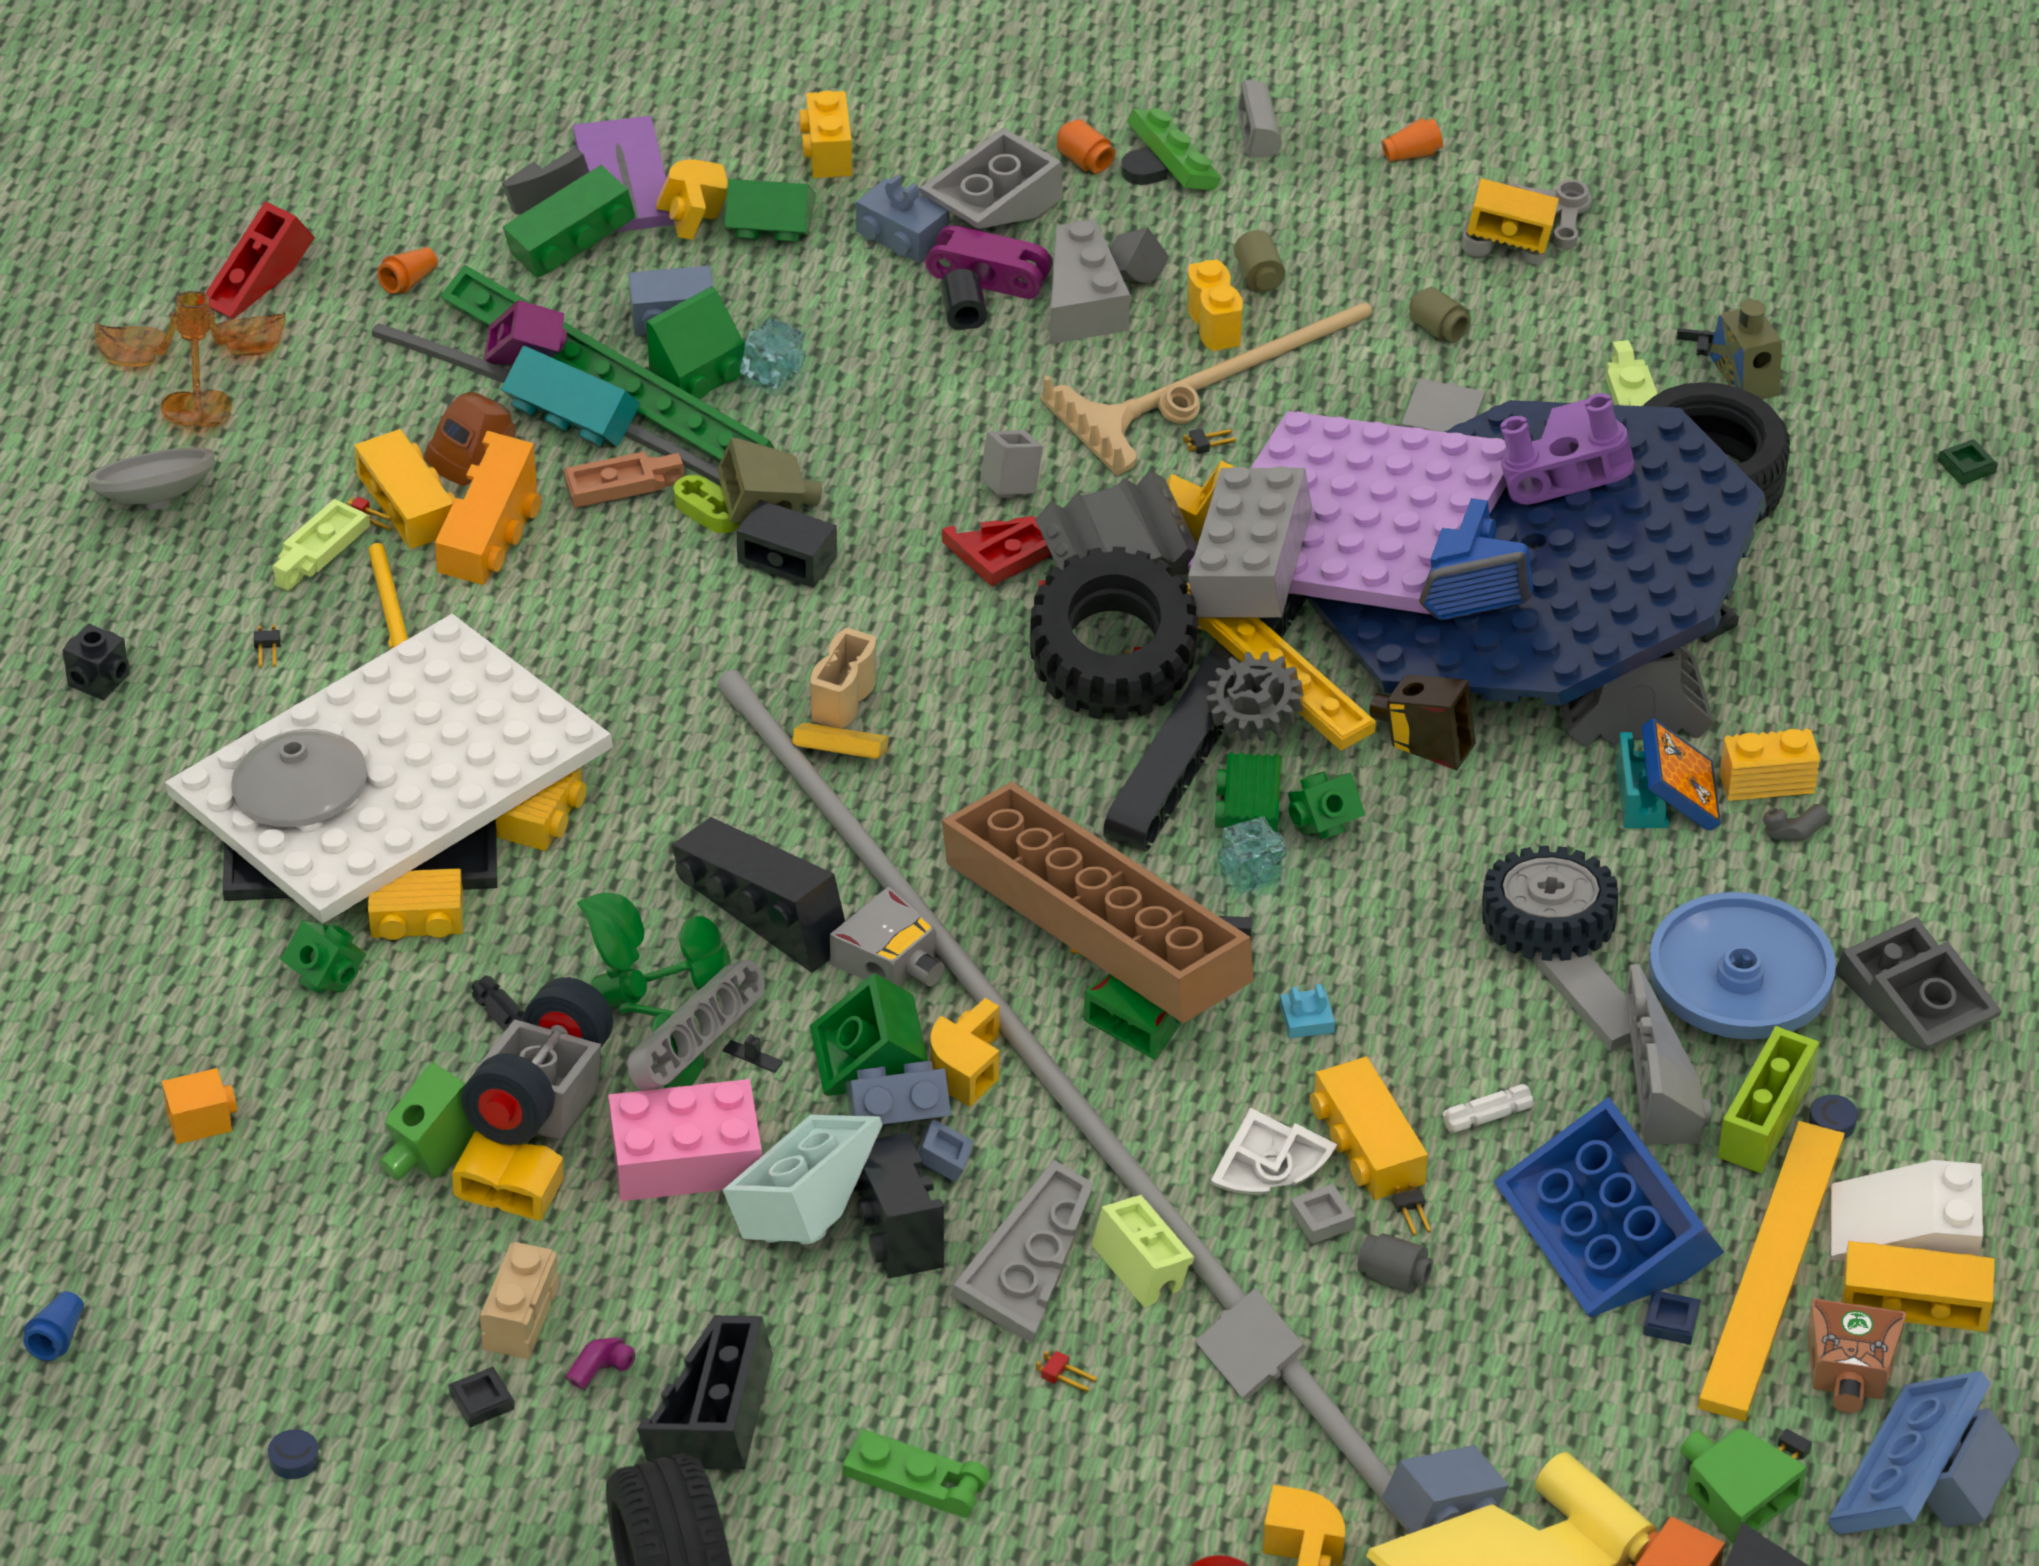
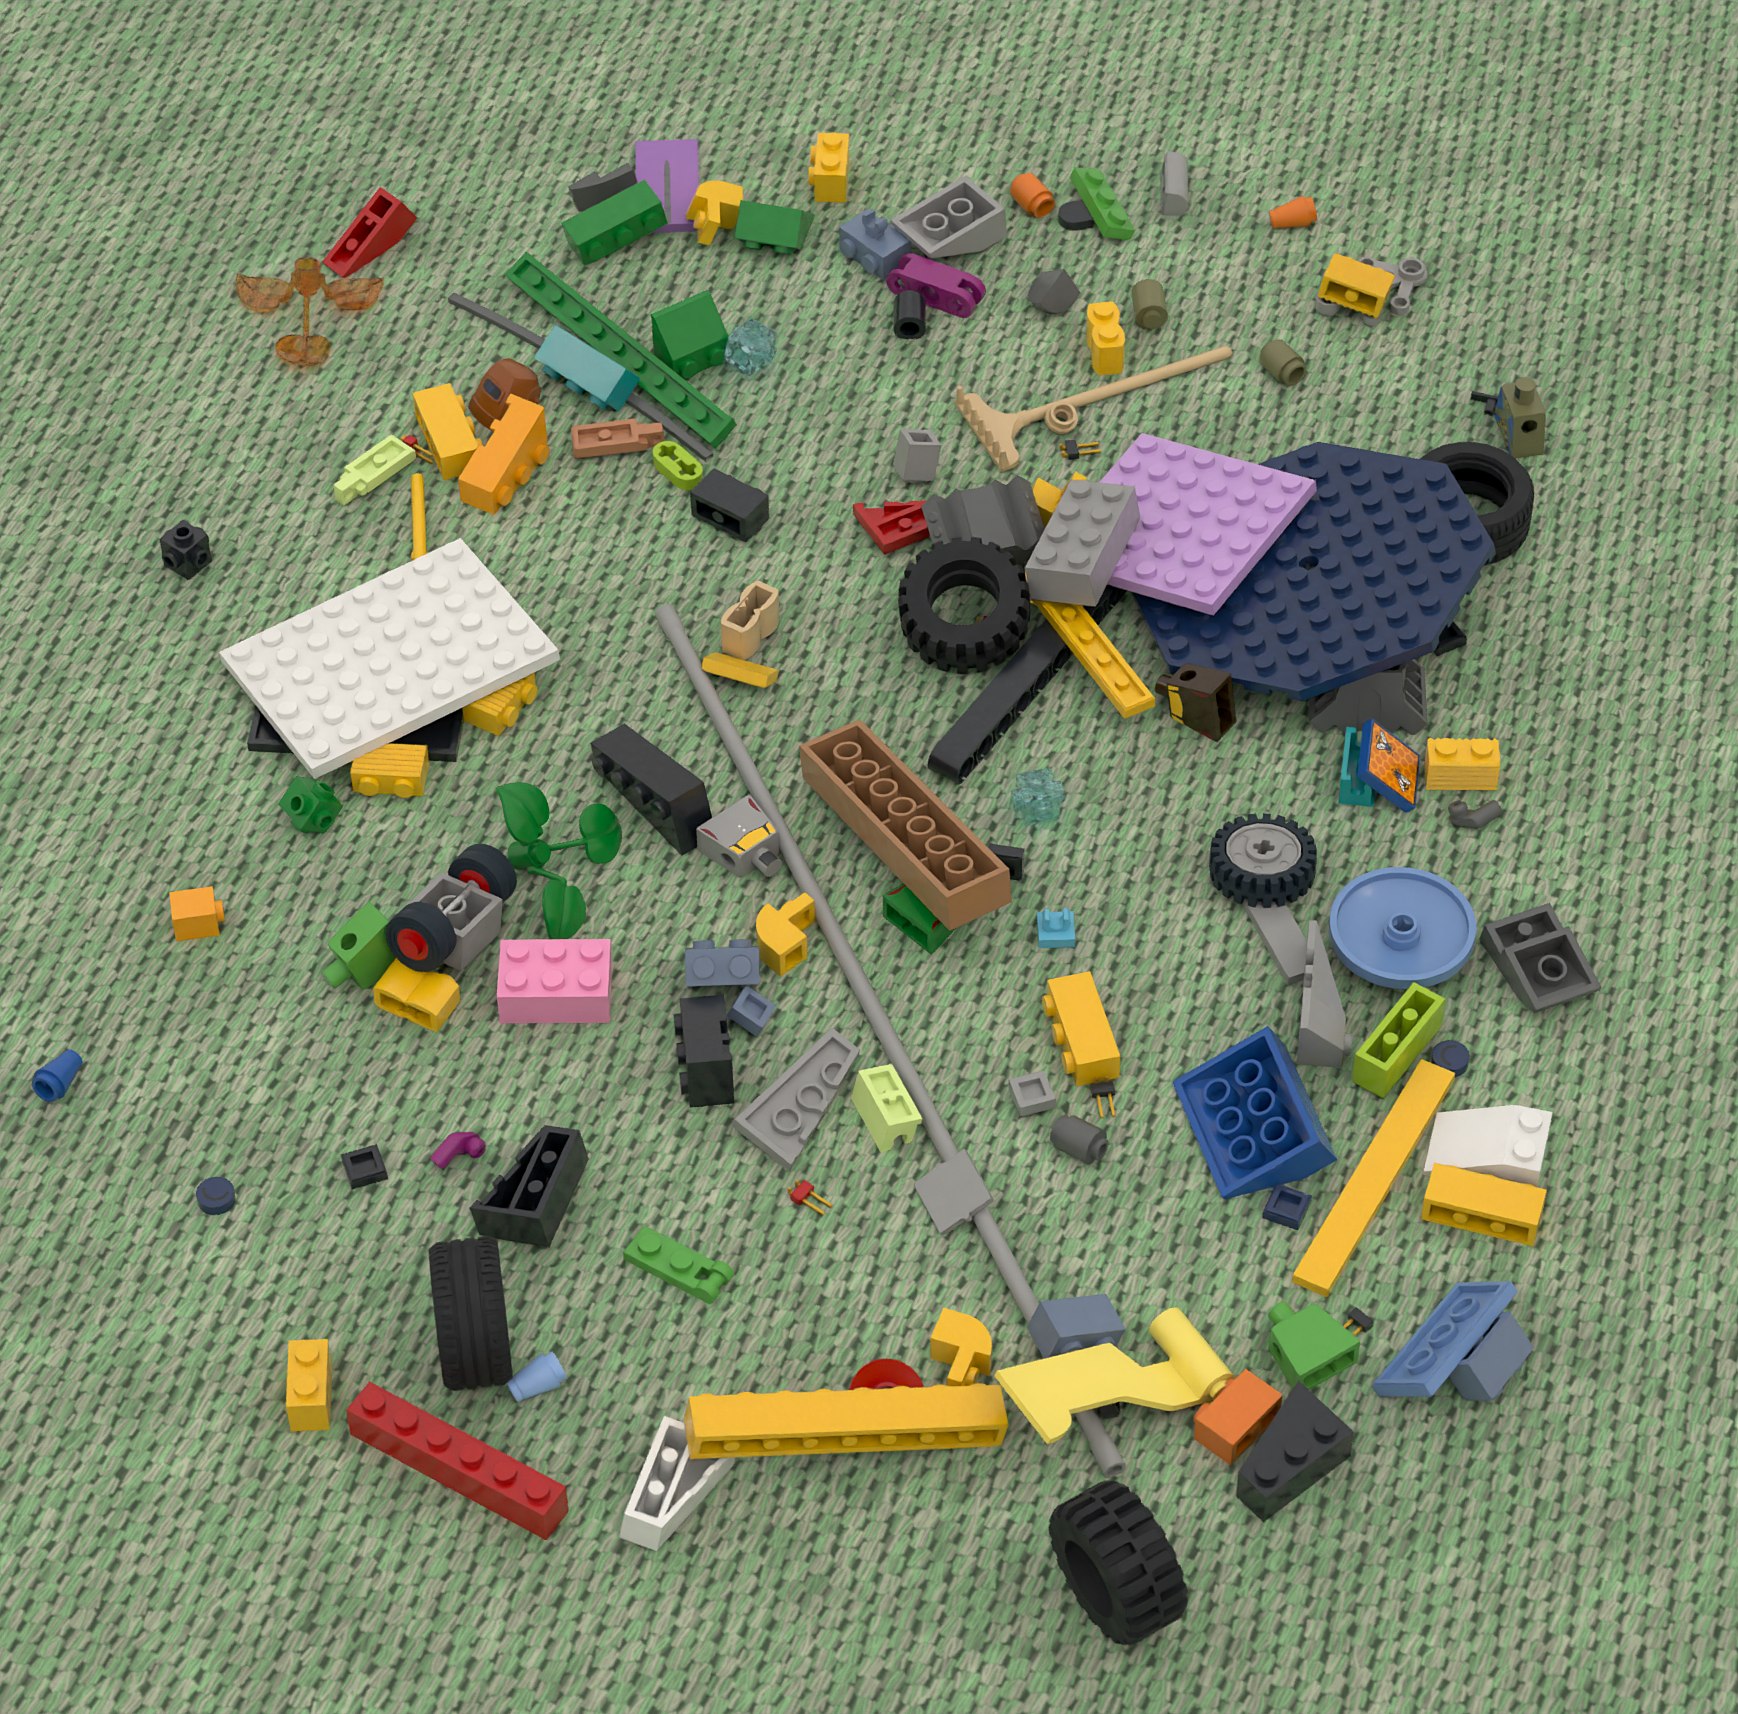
camera: 10 degrees right, 5 degrees up
(152, 476) = (255, 403): light grey dish -> none
(267, 639) = (319, 543): black piece -> none
(299, 778) = (316, 661): light grey dish -> none
(406, 269) = (483, 250): orange cone -> none
(499, 1003) = (436, 853): black axle -> none
(519, 1300) = (405, 1094): tan brick -> none
(527, 326) = (562, 309): magenta slope -> none
(660, 290) = (673, 286): sand blue brick -> none
(683, 1030) = (567, 894): light grey beam -> none
(752, 1053) = (621, 914): black piece -> none
(763, 473) = (723, 449): olive torso -> none
(803, 1179) = (635, 1023): light aqua slope -> none
(867, 1030) = (712, 909): green slope -> none
(1086, 285) = (1005, 312): light grey wedge -> none
(1249, 789) = (1047, 744): green brick -> none
(1255, 696) = (1063, 668): dark grey gear -> none
(1270, 1156) = (1001, 1042): white brick -> none
(1325, 804) = (1103, 761): green brick -> none
(1441, 405) = (1269, 439): light grey piece -> none
(1475, 570) = (1250, 584): blue piece -> none
(1488, 1108) = (1179, 1022): white axle -> none
(1577, 451) = (1354, 493): medium lavender piece -> none
(1628, 378) = (1423, 430): yellowish green hinge -> none
(1852, 1350) = (1422, 1251): torso -> none
(1967, 462) = (1681, 525): dark green tile -> none

